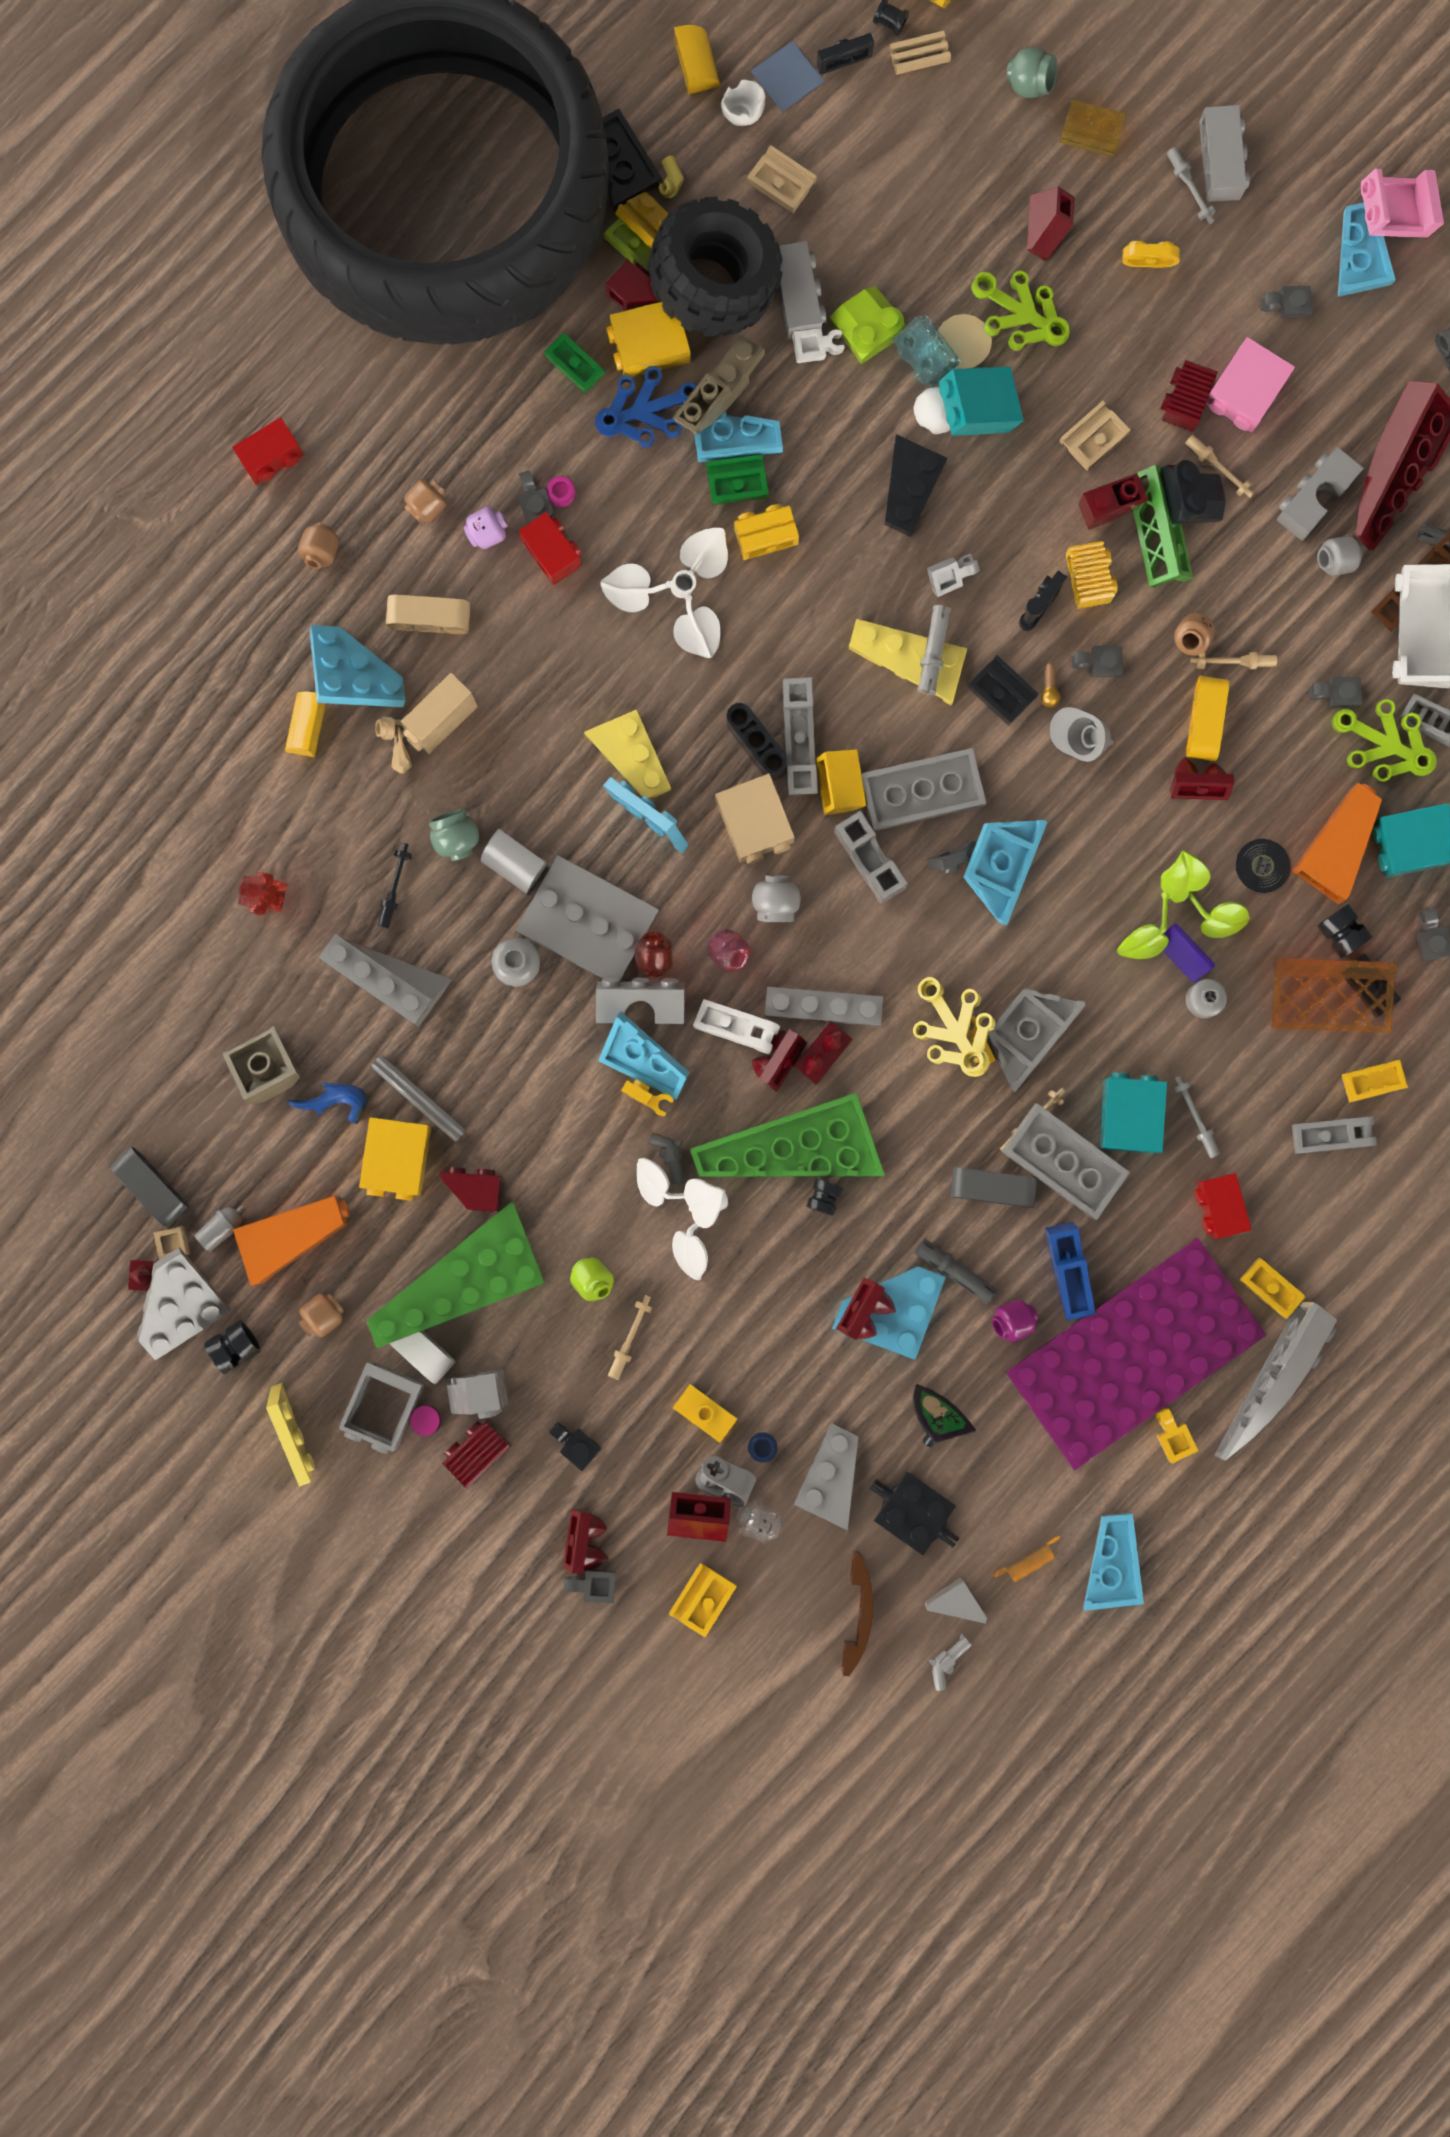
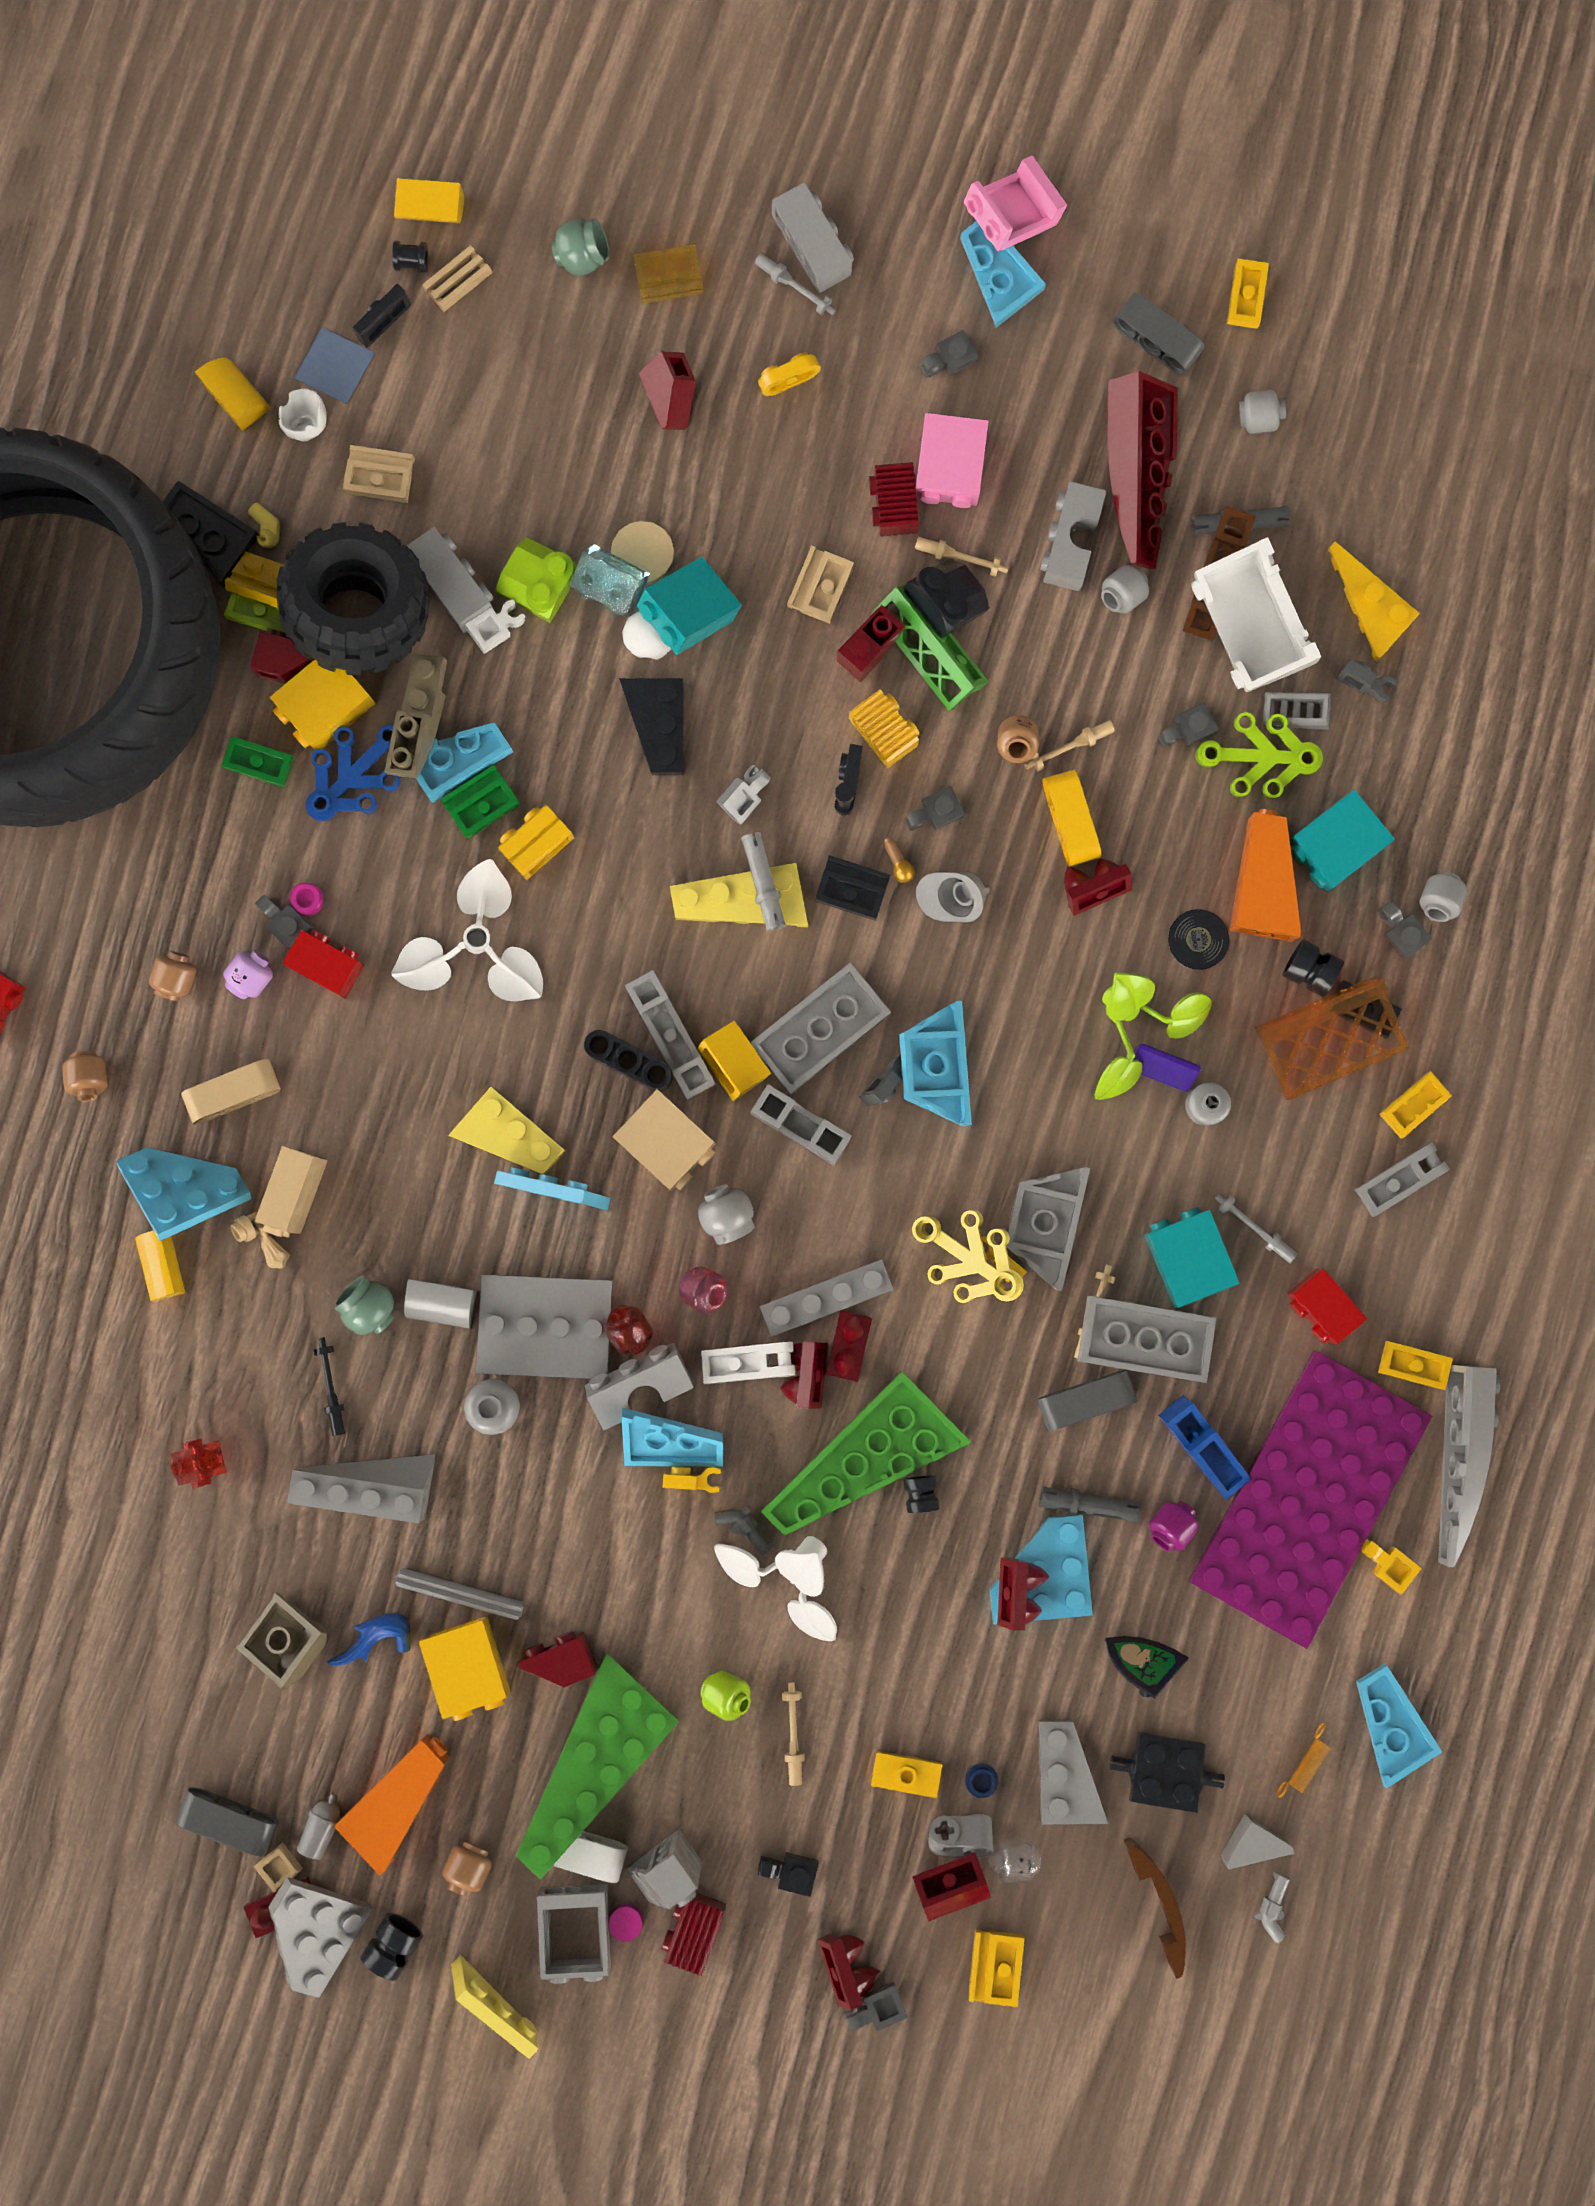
camera: 20 degrees left, 0 degrees up
(1023, 312) = (689, 493): lime plant -> none

